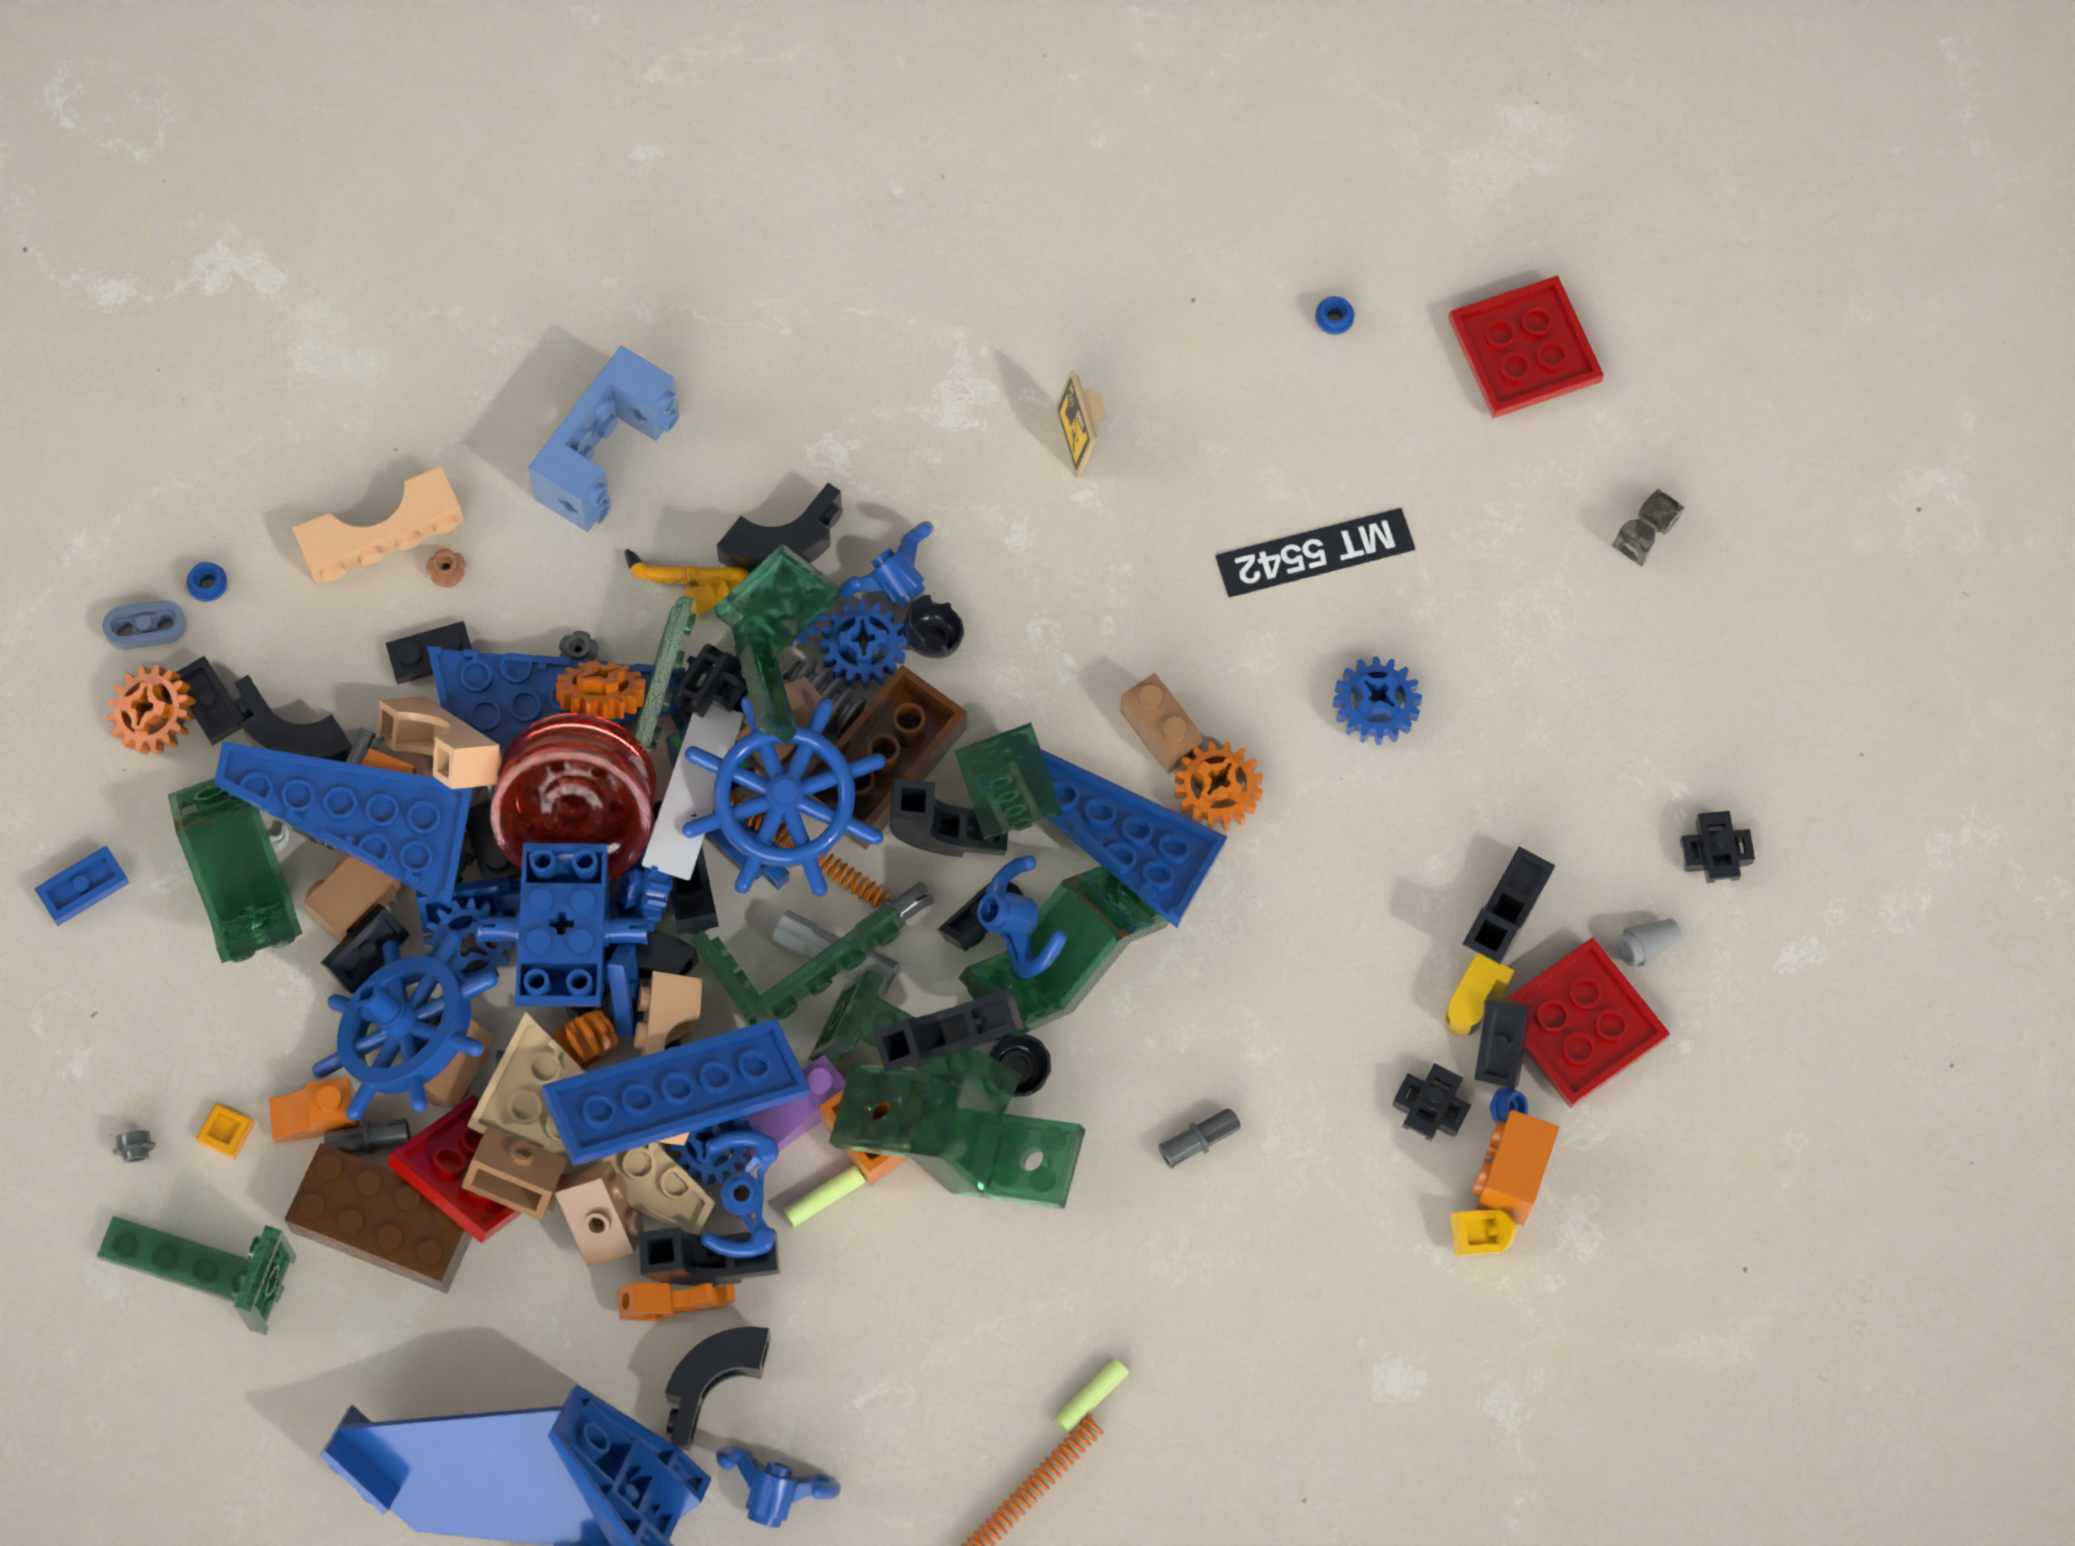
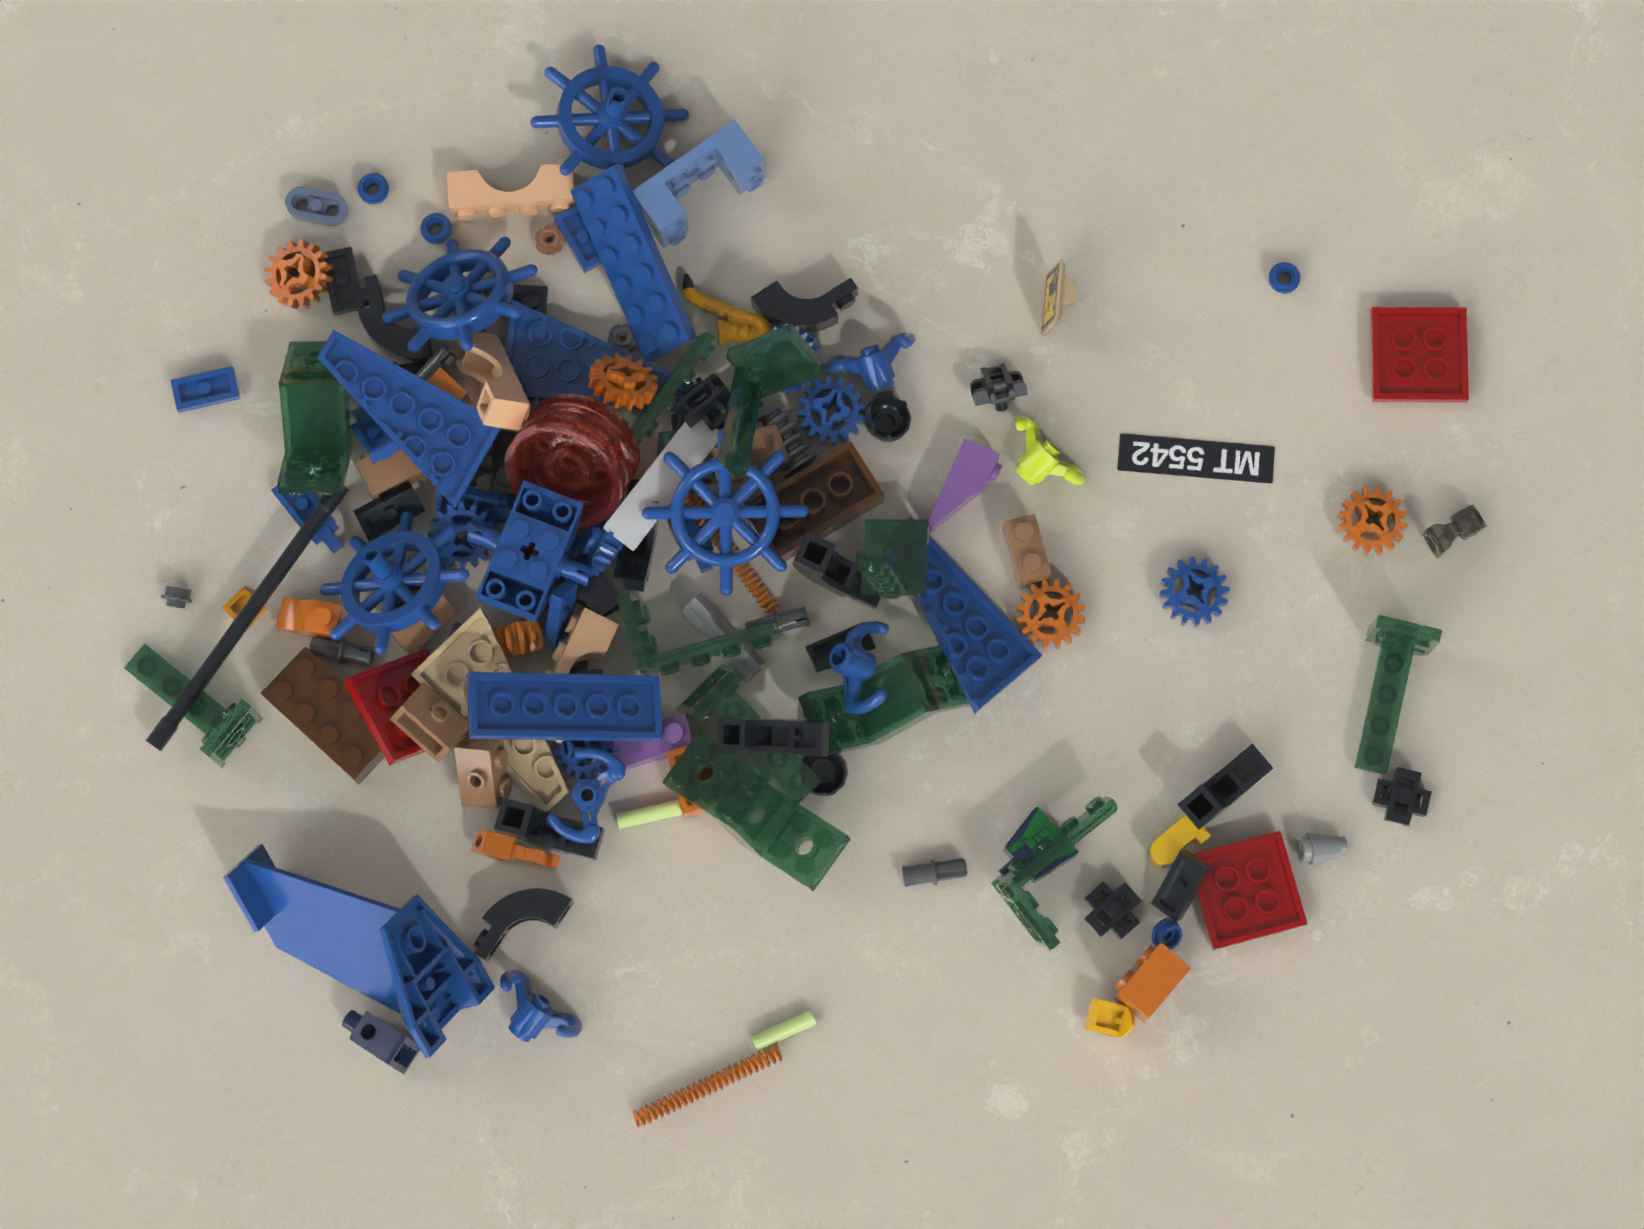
camera: 25 degrees right, 10 degrees up
(181, 1298) = (169, 723): none -> black piece
(266, 989) = (300, 508): none -> blue hinge
(299, 591) = (432, 220): none -> blue plate
(314, 861) = (371, 437): none -> blue hinge
(361, 659) = (459, 294): none -> blue piece
(467, 401) = (609, 116): none -> blue piece
(485, 550) = (578, 238): none -> blue plate
(560, 553) = (633, 263): none -> blue plate
(1050, 549) = (997, 387): none -> black piece
(1056, 668) = (965, 481): none -> medium lavender slope
(1135, 611) = (1042, 457): none -> neon yellow piece
(1313, 1064) = (1022, 843): none -> torso
(1326, 1128) = (1045, 853): none -> clear green bracket
(1555, 564) = (1378, 531): none -> orange gear
(1638, 666) = (1397, 645): none -> clear green bracket

